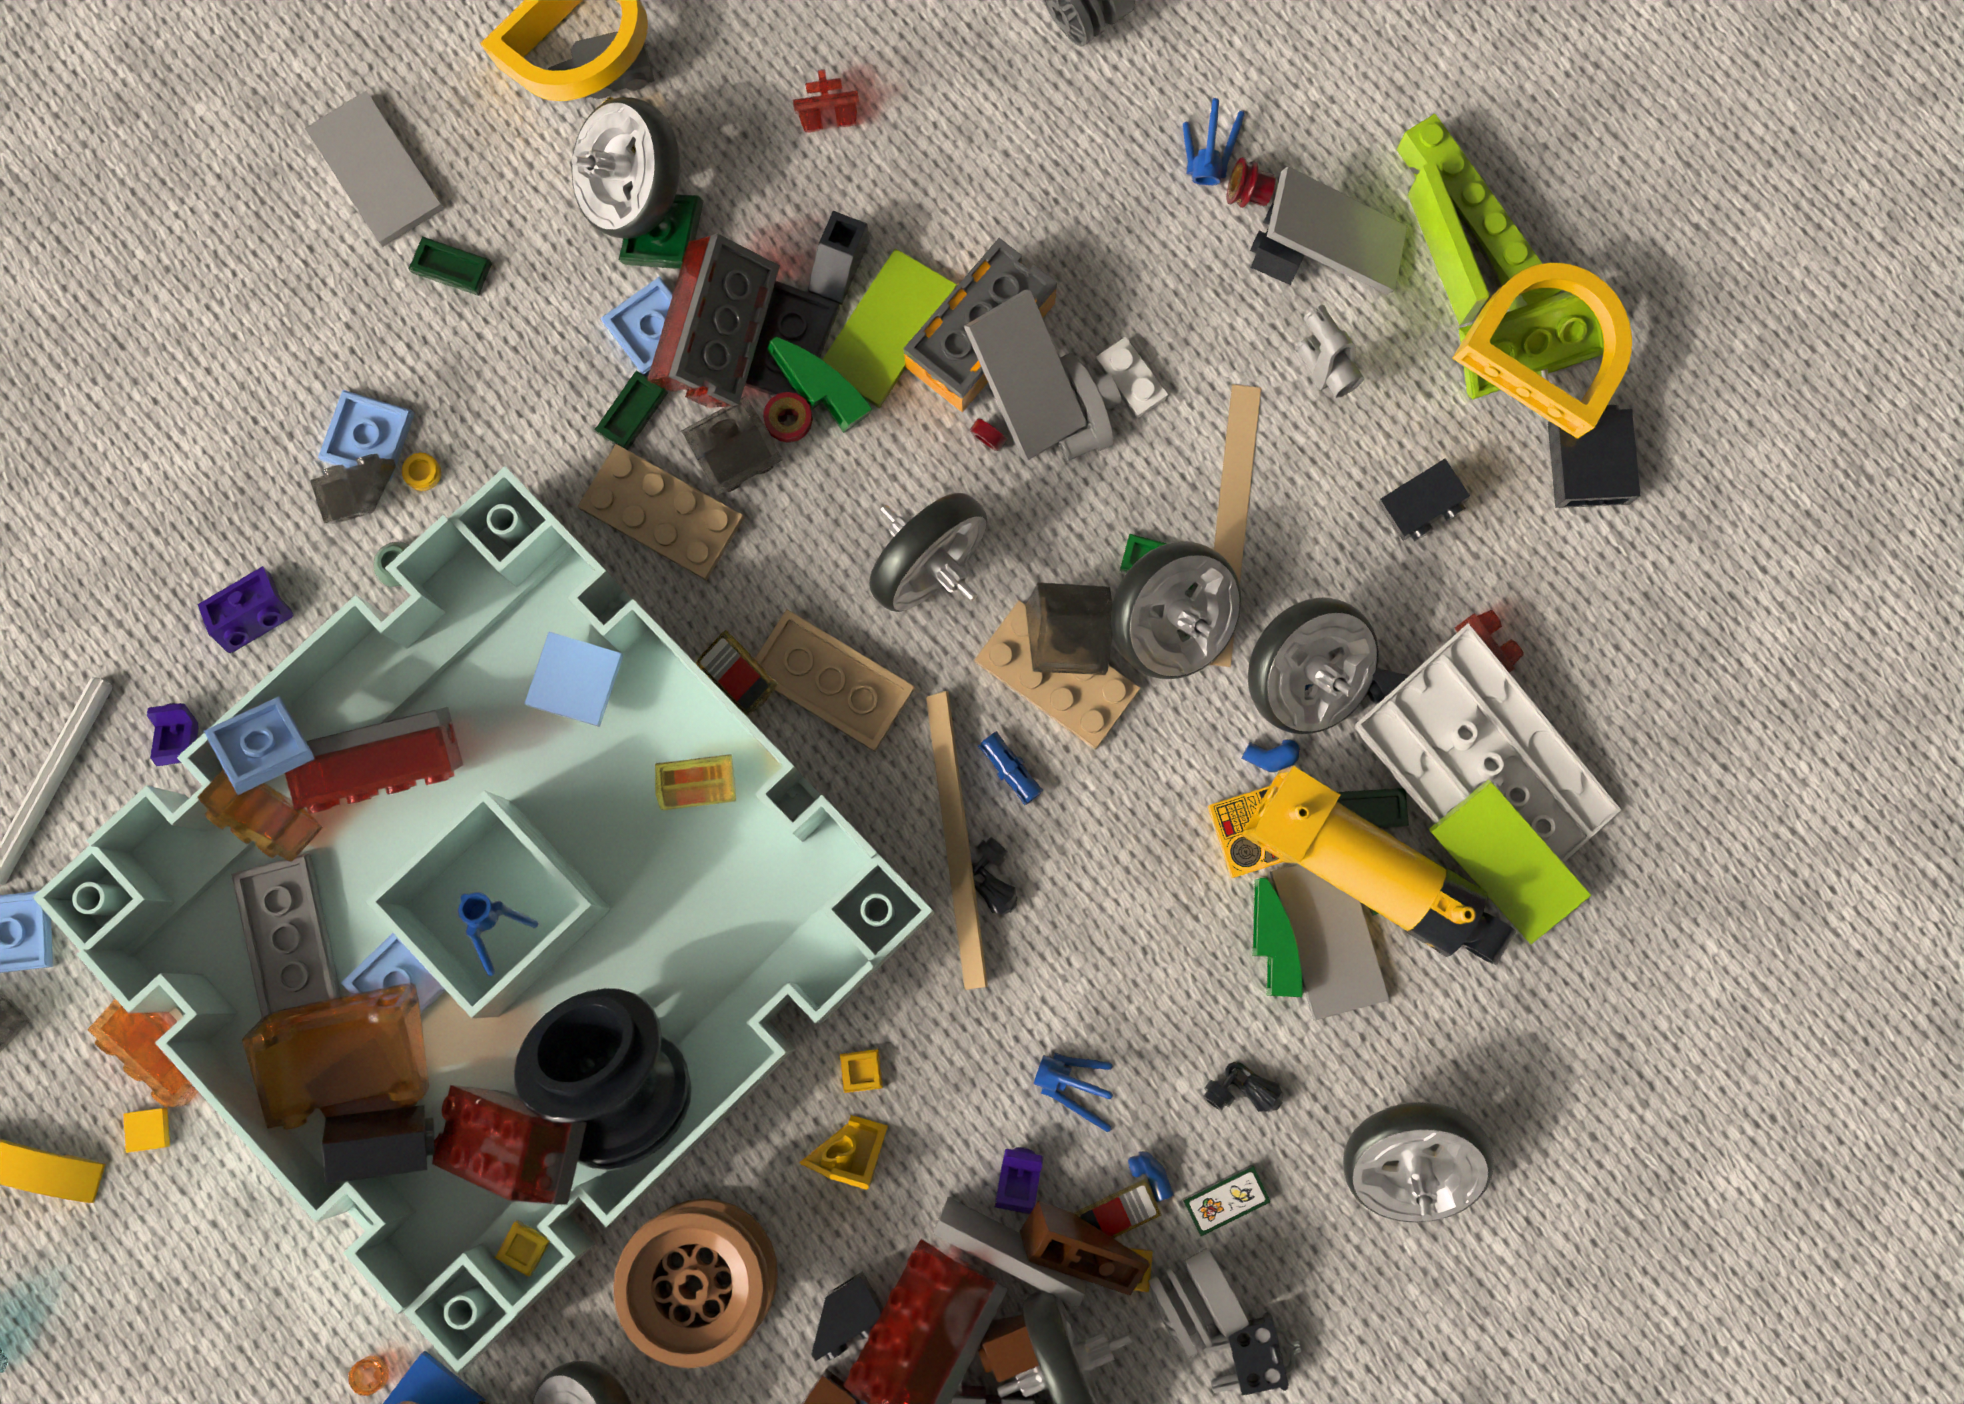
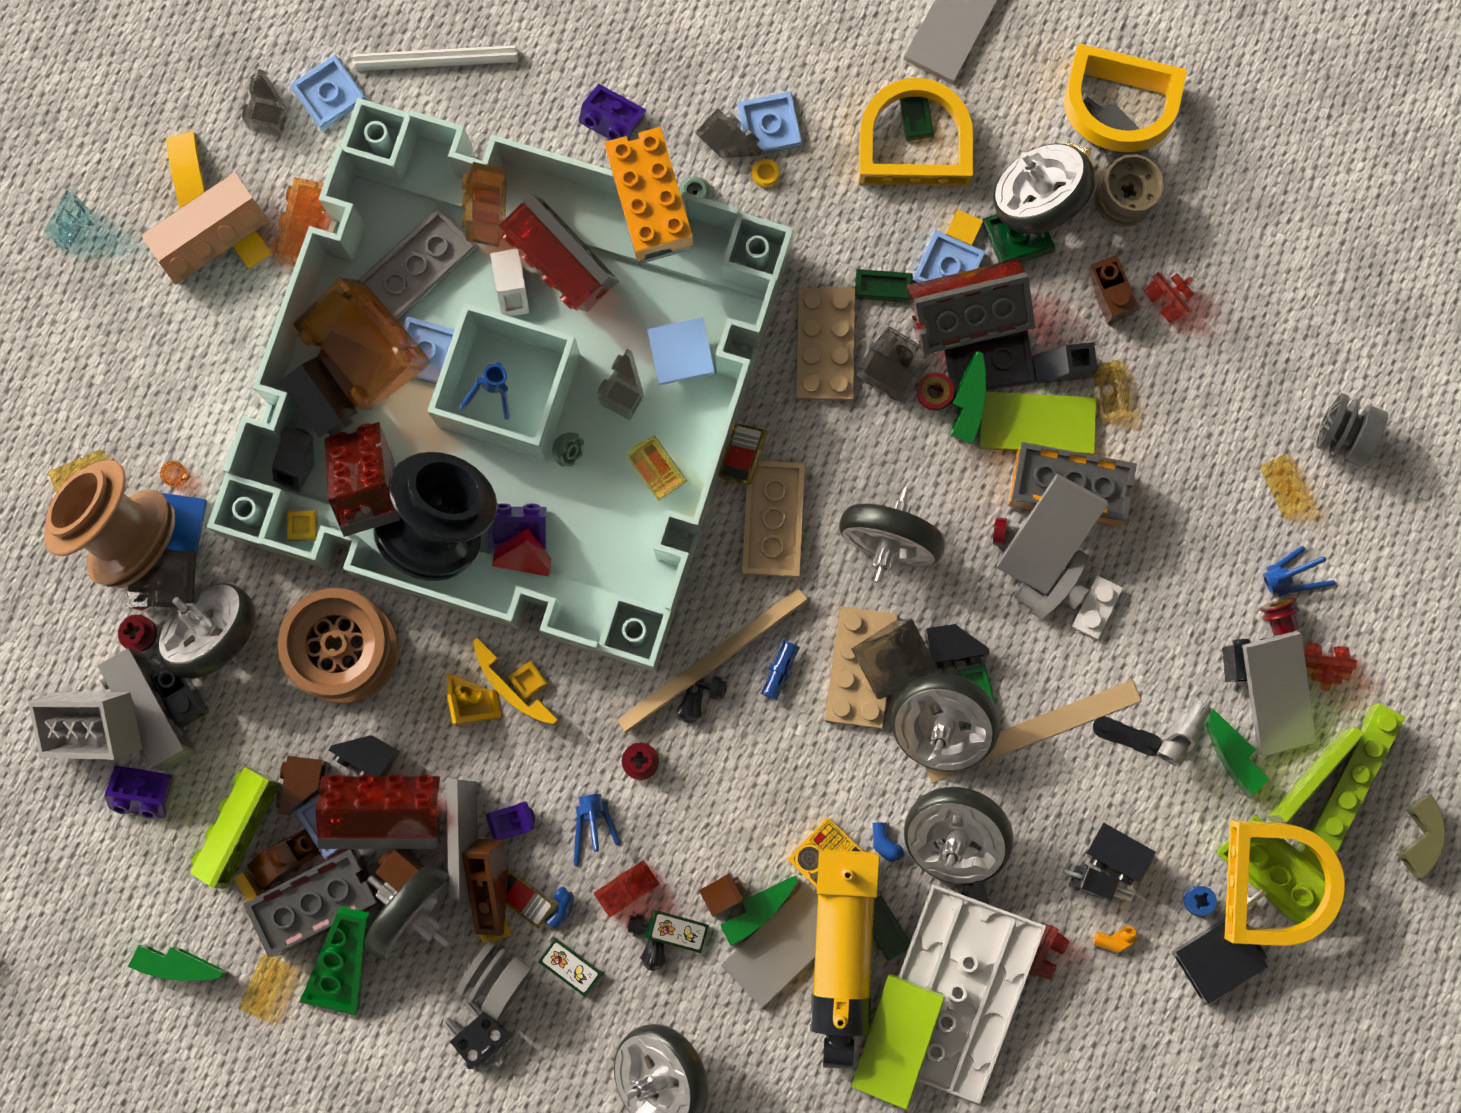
camera: 65 degrees right, 0 degrees up
(83, 1176) = (204, 228): none -> slope
(173, 732) = (507, 118): dark purple bracket -> none
(259, 745) = (526, 180): light blue tile -> none
(365, 606) = (649, 196): none -> light orange piece
(373, 836) = (509, 282): none -> white slope
(434, 1215) = (293, 458): none -> black slope
(523, 304) = (916, 173): none -> yellow window
(580, 768) = (623, 389): none -> clear smoke slope
(614, 874) = (567, 449): none -> sand green plate
(616, 284) = (964, 227): none -> yellow tile
(675, 983) = (514, 520): none -> dark purple bracket
(682, 79) = (1139, 179): none -> dark tan wheel
(709, 995) = (523, 554): none -> red slope
(784, 161) = (1113, 290): none -> reddish brown slope
(812, 1105) = (487, 661): none -> yellow slope
(898, 228) = (1112, 391): none -> clear yellow slope
(1025, 972) = (648, 769): none -> dark red piece
(1088, 555) = (953, 644): none -> black slope
(1107, 103) = (1286, 485): none -> clear yellow slope
(1171, 1084) = (626, 888): none -> clear red slope
(1237, 973) = (722, 894): none -> reddish brown slope
(1250, 1051) = (676, 931): none -> tile
(1292, 423) = (1123, 734): none -> black piece
(1337, 163) = (1328, 669): none -> clear red hips
(1378, 319) = (1234, 755): none -> green slope
(1443, 544) = (1096, 883): none -> black piece
(1512, 451) = (1194, 898): none -> blue wheel
(1516, 558) = (1117, 942): none -> light orange arm
(1585, 174) = (1425, 850): none -> olive brick

